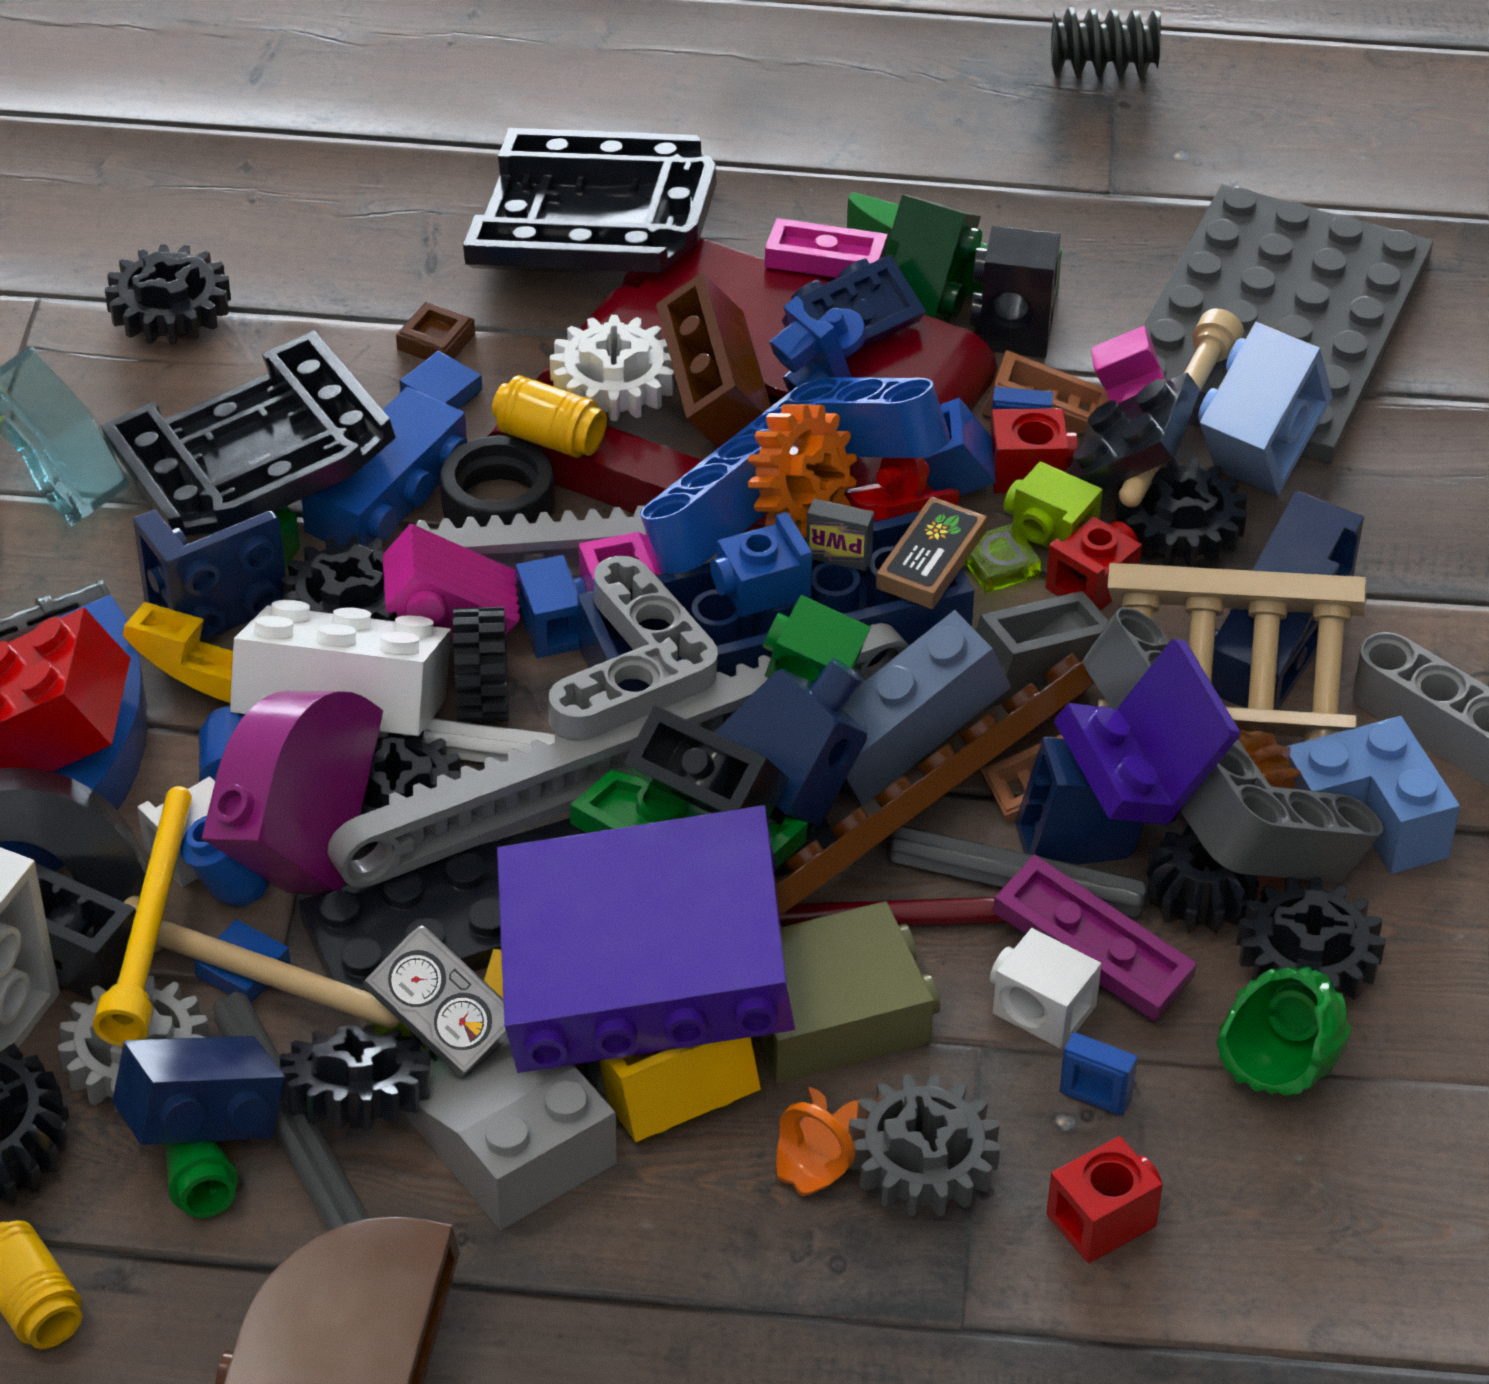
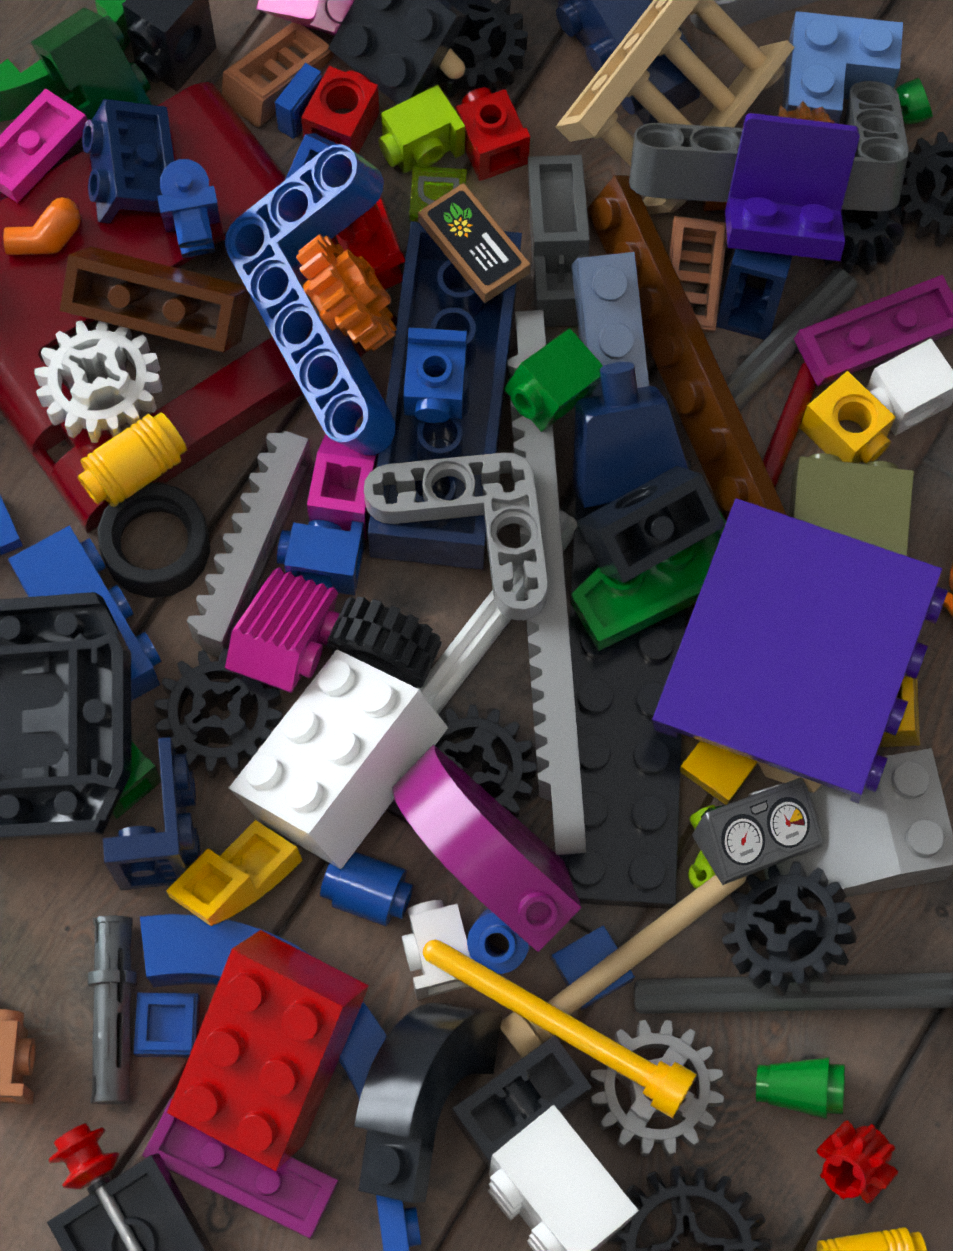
camera: 65 degrees left, 25 degrees up
(132, 1230) = (857, 1161): none -> red gear
(198, 1089) = (760, 1057): dark blue brick -> none
(747, 290) = (48, 233): none -> orange arm
(840, 534) = (431, 298): tile -> none
(965, 945) = (848, 401): none -> yellow brick
(1397, 879) = (914, 102): none -> green hinge

